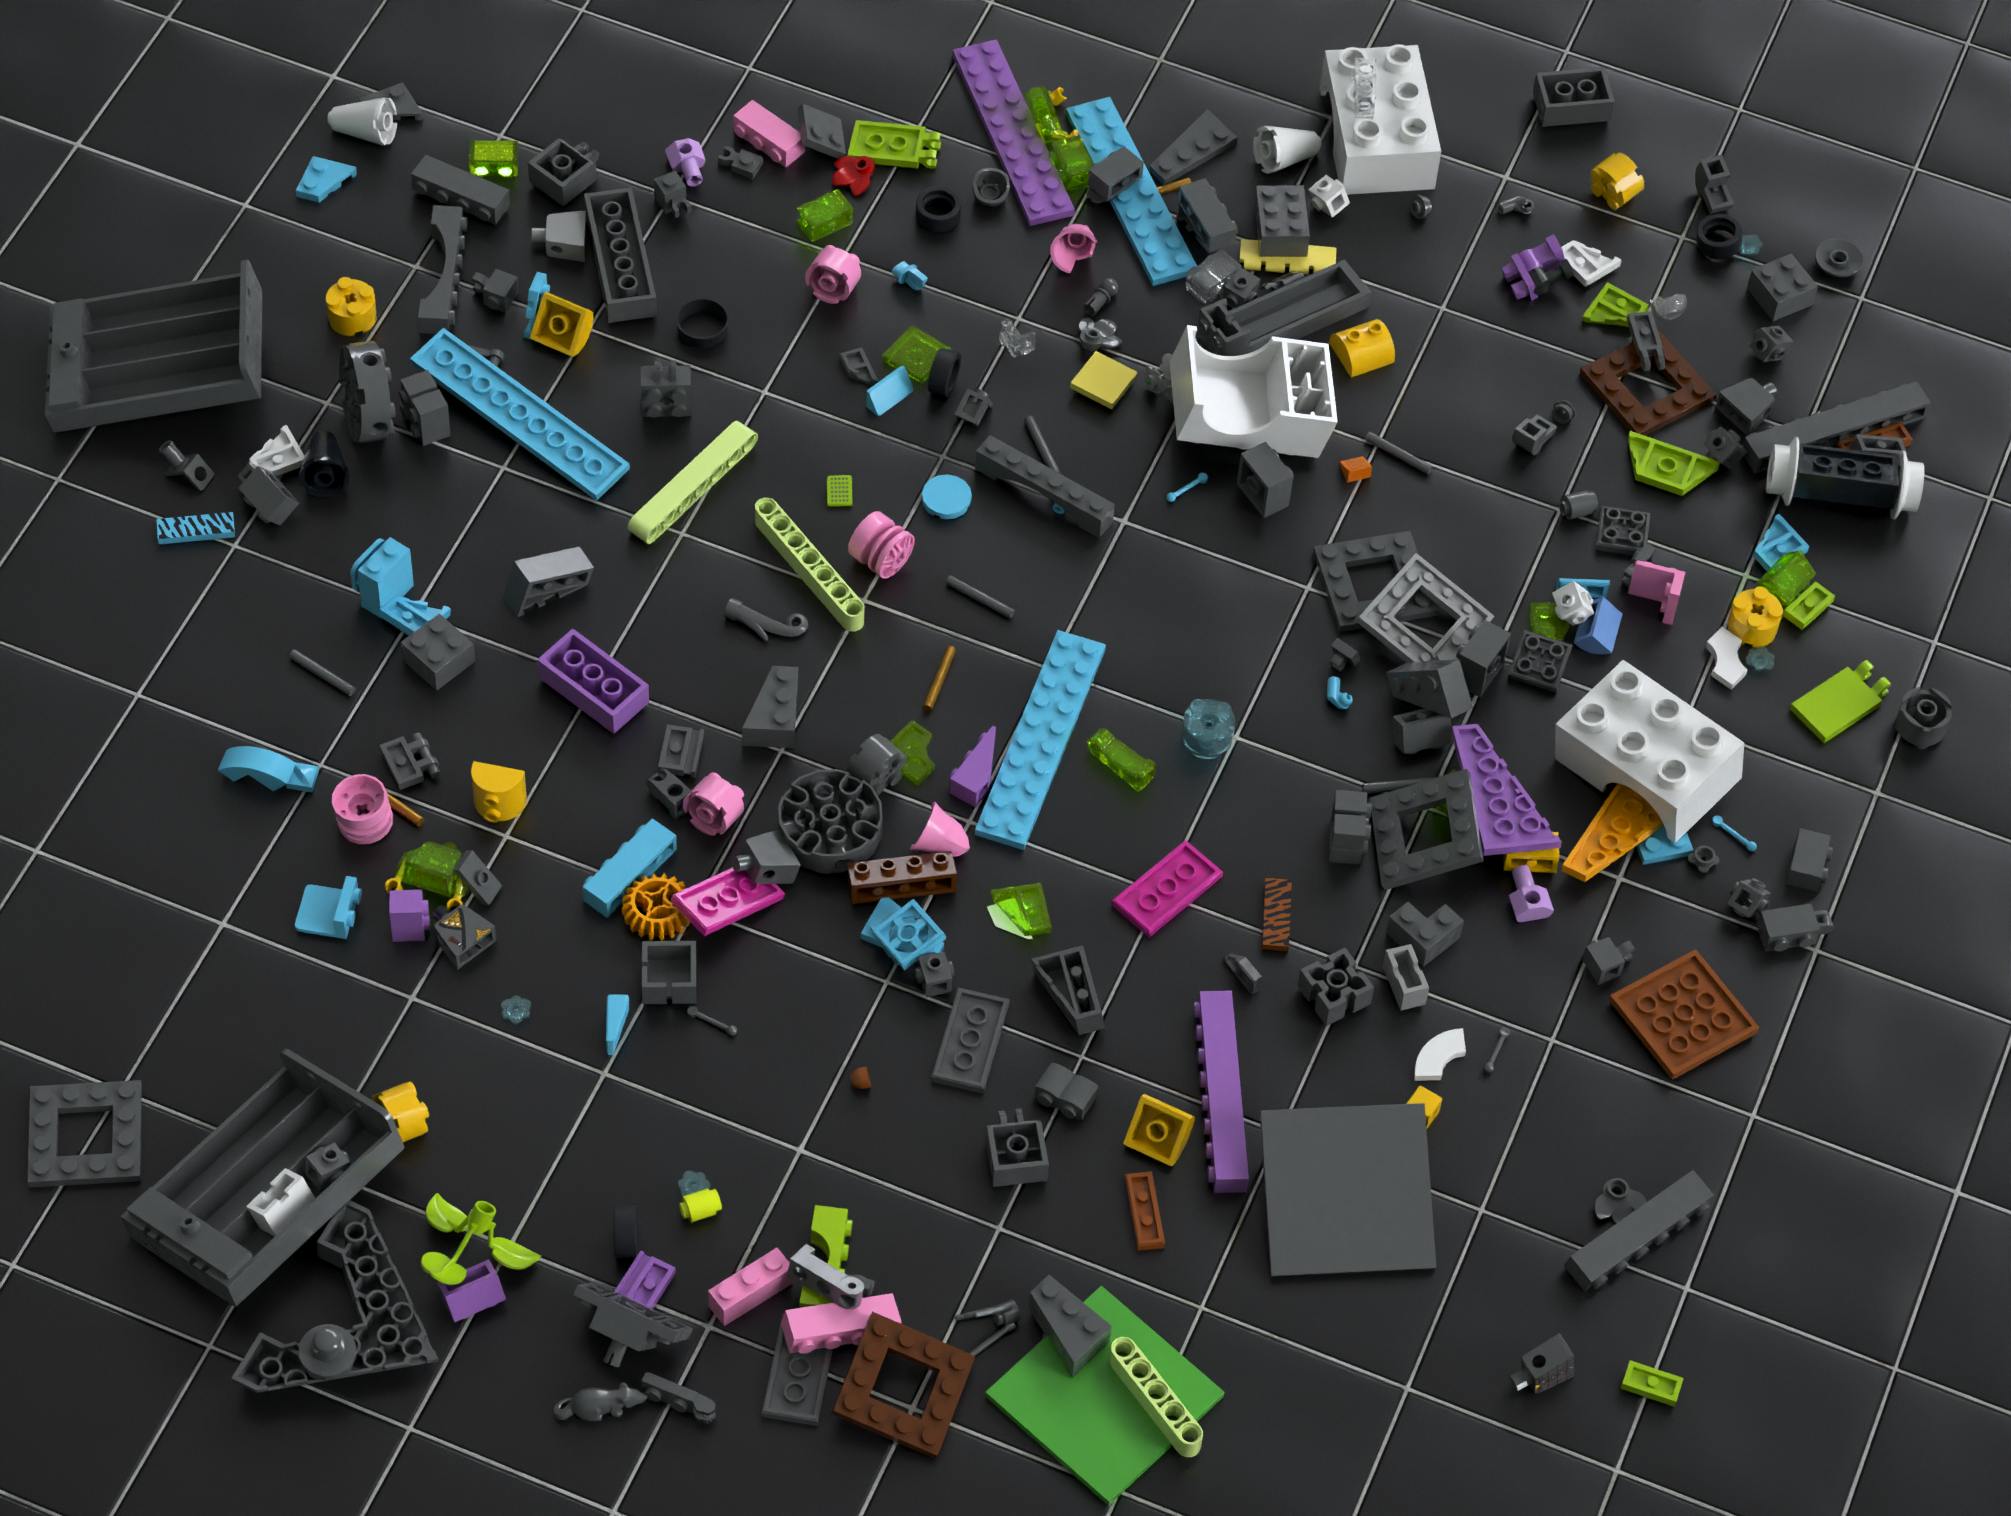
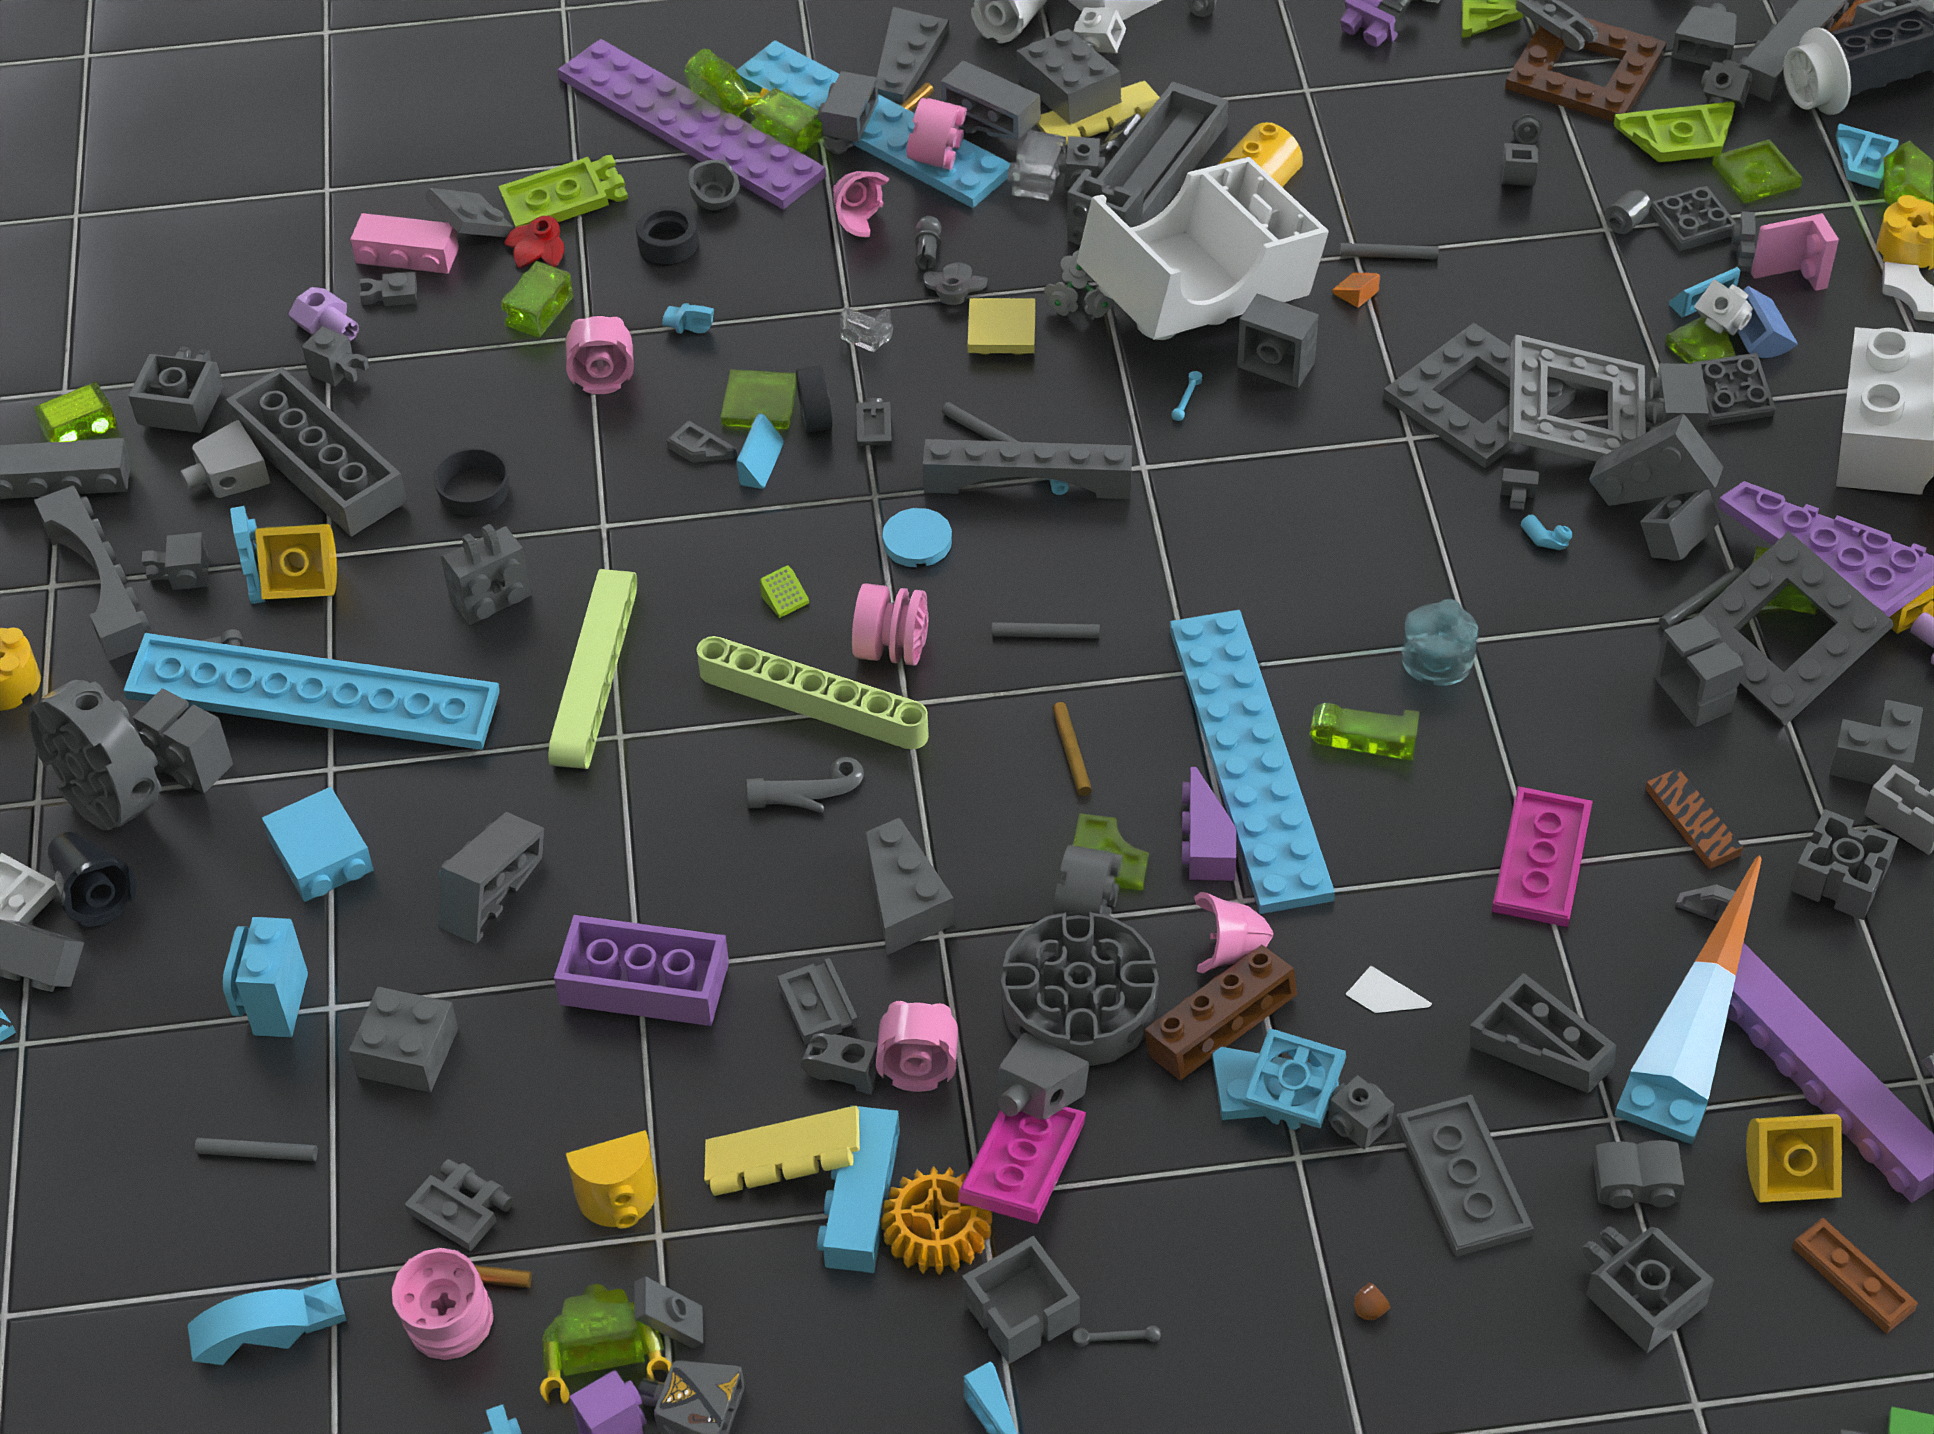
camera: 25 degrees left, 5 degrees down
(410, 614) = (332, 1011): medium azure wing -> none
(464, 510) = (317, 844): none -> medium azure brick
(599, 824) = (785, 1145): none -> light yellow windscreen
(1024, 907) = (1398, 969): clear neon green wing -> none
(1142, 1043) = (1677, 1066): none -> plate
(1152, 222) = (936, 133): none -> bright pink brick
(1697, 519) = (1757, 171): none -> clear neon green tile

